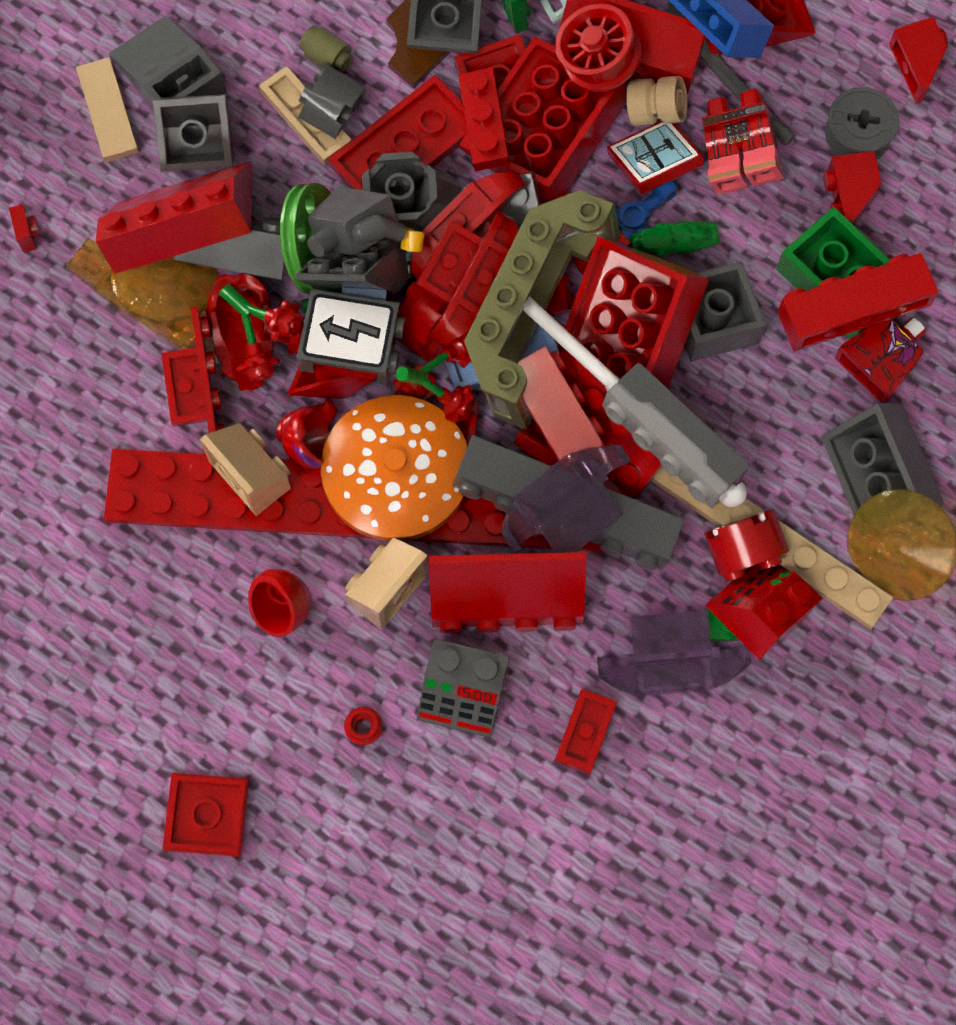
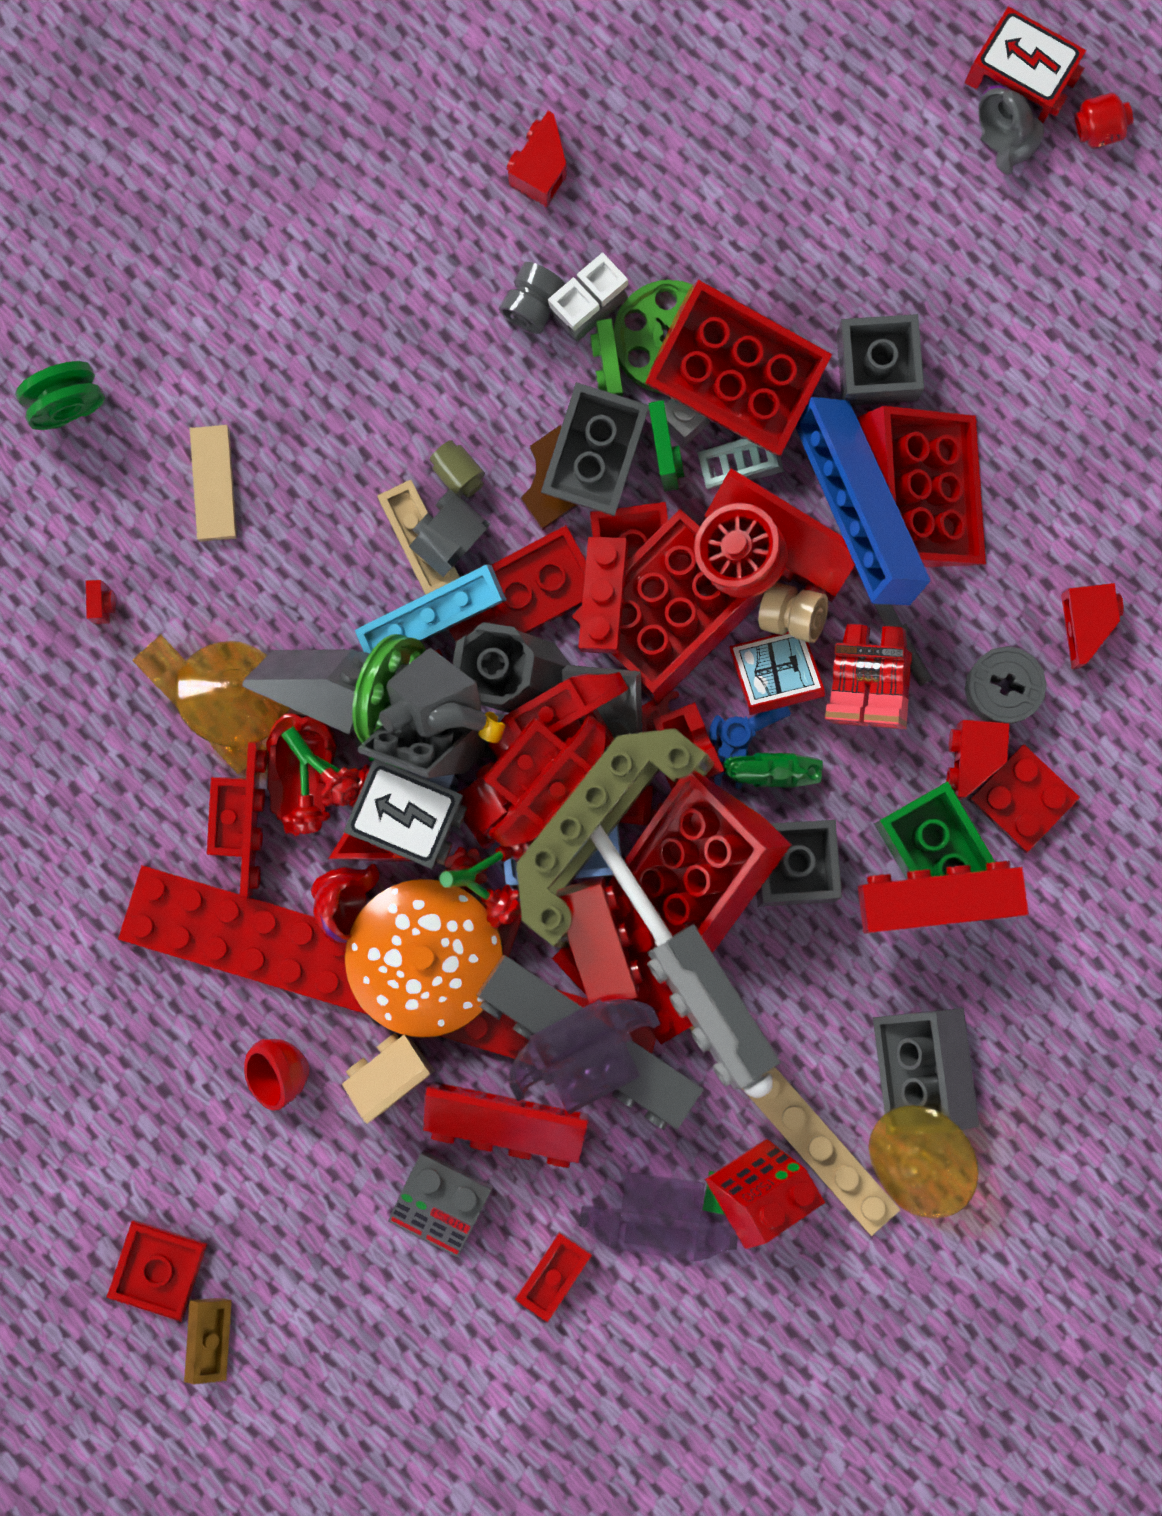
camera: 15 degrees right, 10 degrees up
(167, 64) = (284, 456): dark grey slope -> none
(177, 218) = (256, 636): red slope -> none
(193, 132) = (294, 544): dark grey slope -> none
(246, 466) = (269, 927): tan slope -> none
(269, 866) = (207, 1340): none -> pearl gold plate
(342, 159) = (437, 609): none -> medium azure plate
(357, 715) = (321, 1223): red plate -> none
(746, 544) = (764, 1124): red cylinder -> none
(883, 356) = (960, 952): red torso -> none
(905, 217) = (1024, 798): none -> red plate

